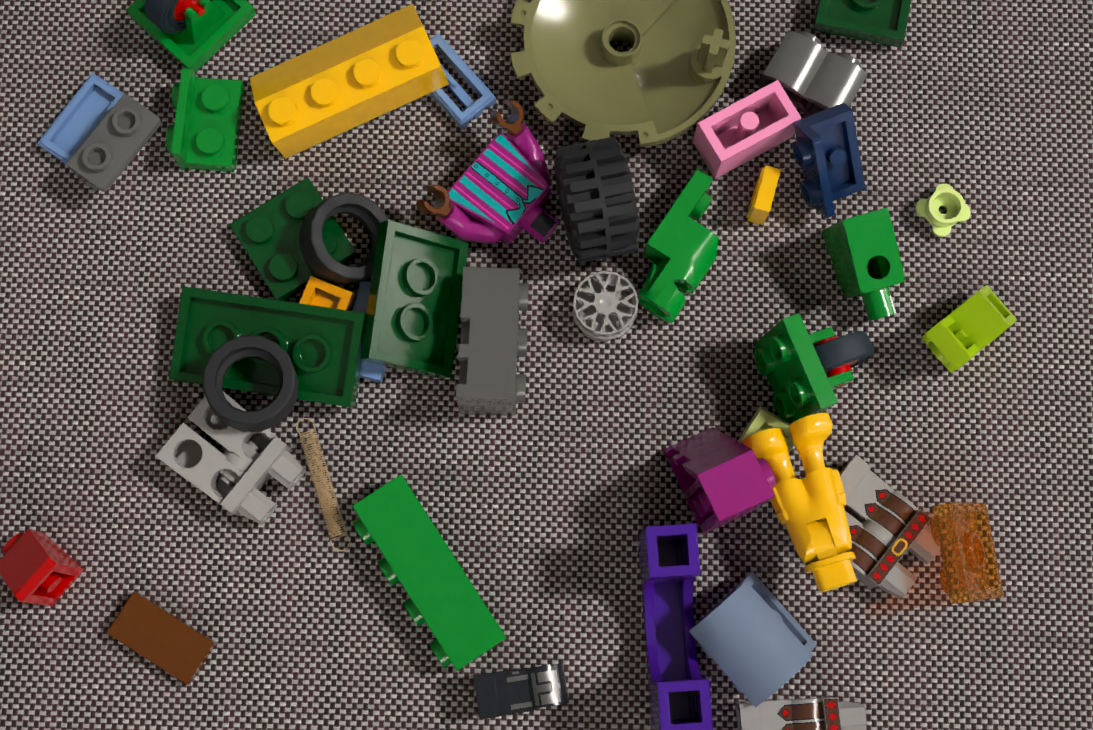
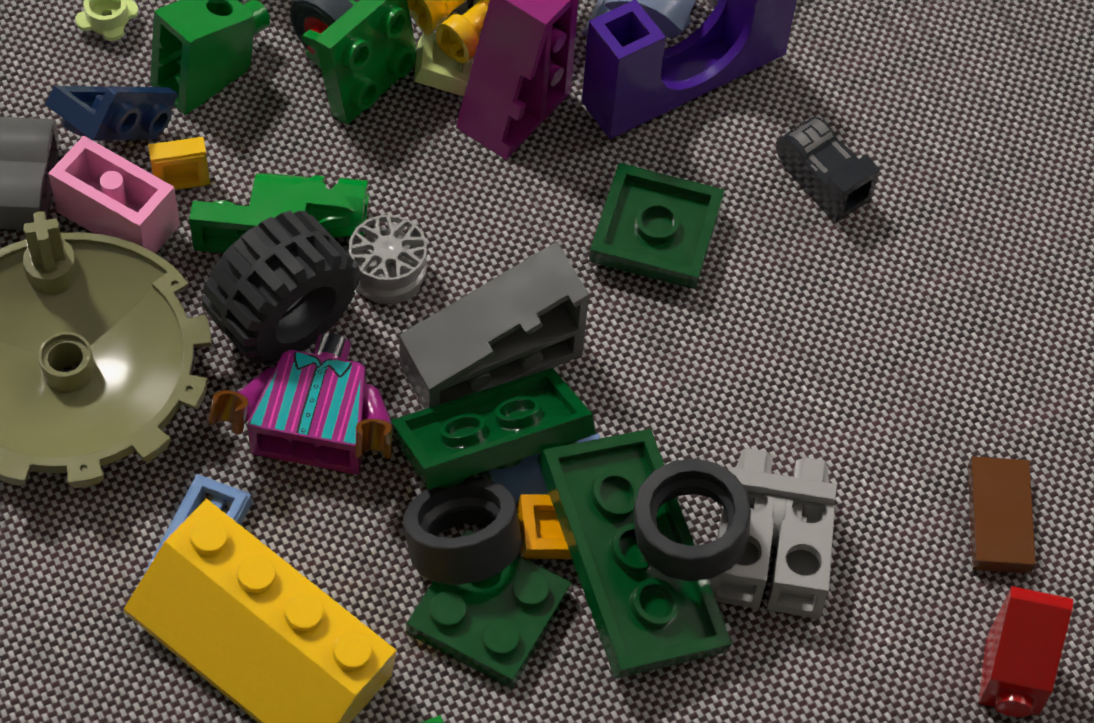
camera: 120 degrees left, 20 degrees down
(322, 473) = (744, 426): tan piece -> none
(428, 572) = (767, 292): green brick -> none
(533, 523) = (656, 226): none -> dark green plate

